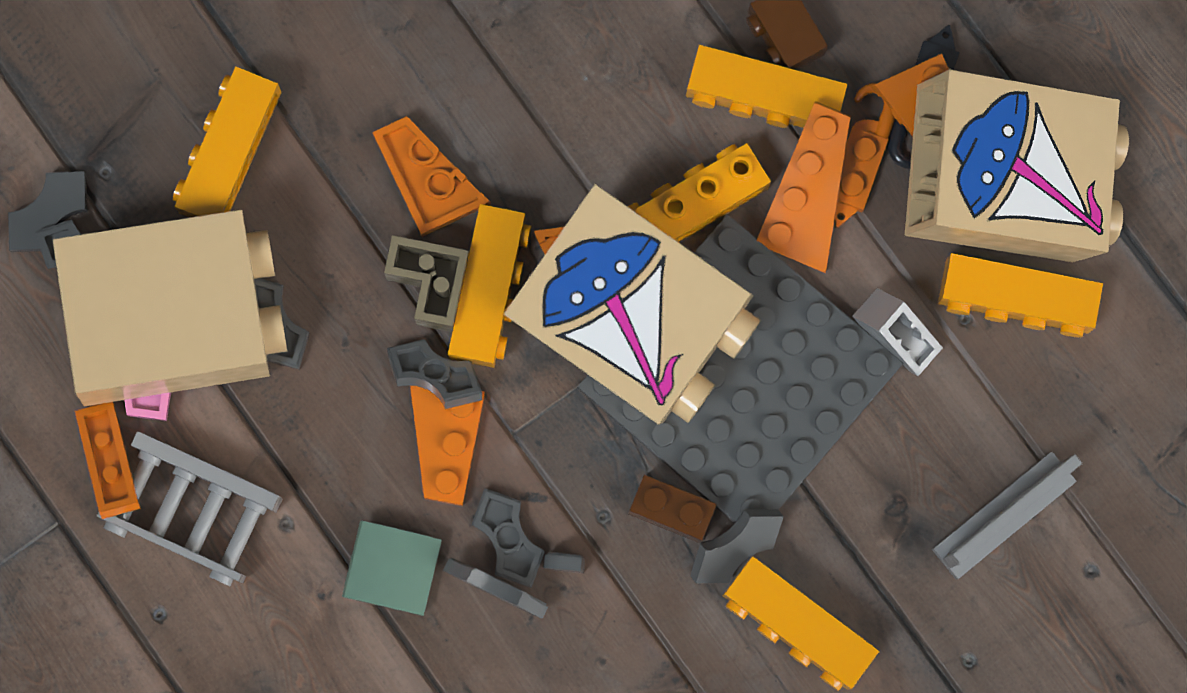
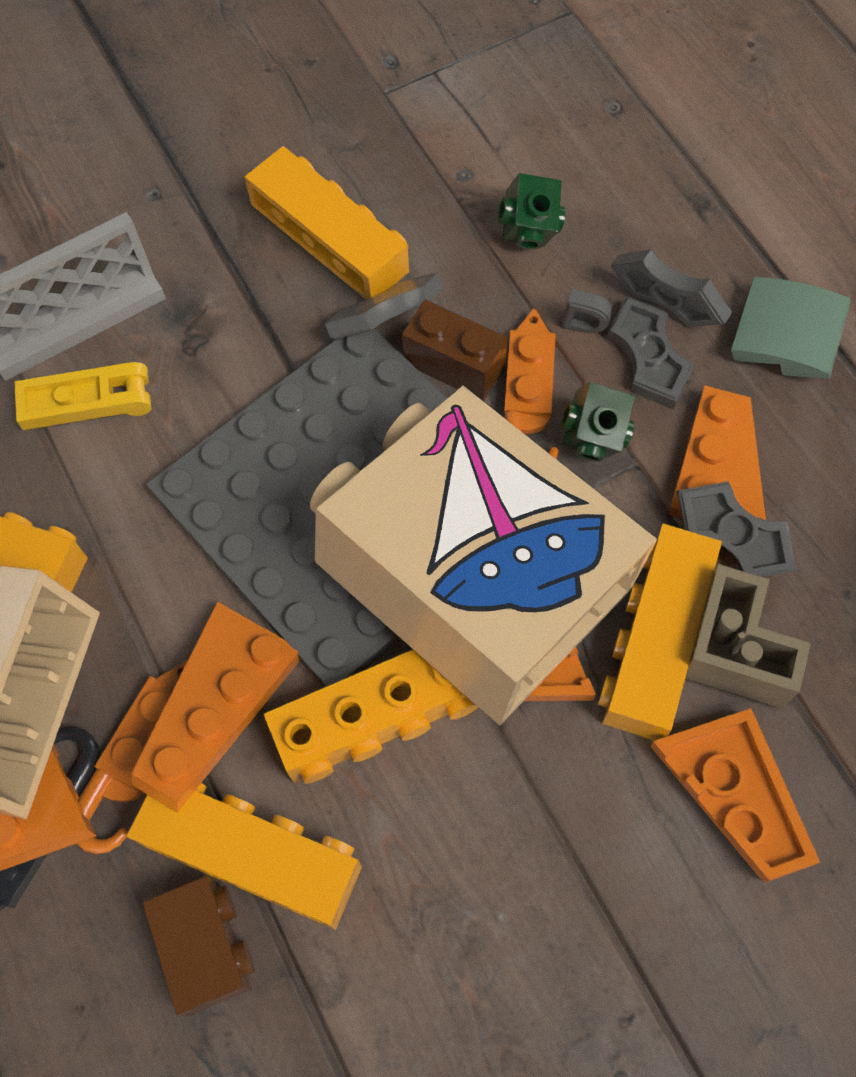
camera: 165 degrees left, 15 degrees down
(548, 452) = (598, 422): none -> dark green brick
(606, 488) = (530, 377): none -> orange plate
(621, 654) = (531, 211): none -> dark green brick
(898, 330) = (145, 519): light grey arch -> none
(976, 436) = (82, 395): none -> yellow plate

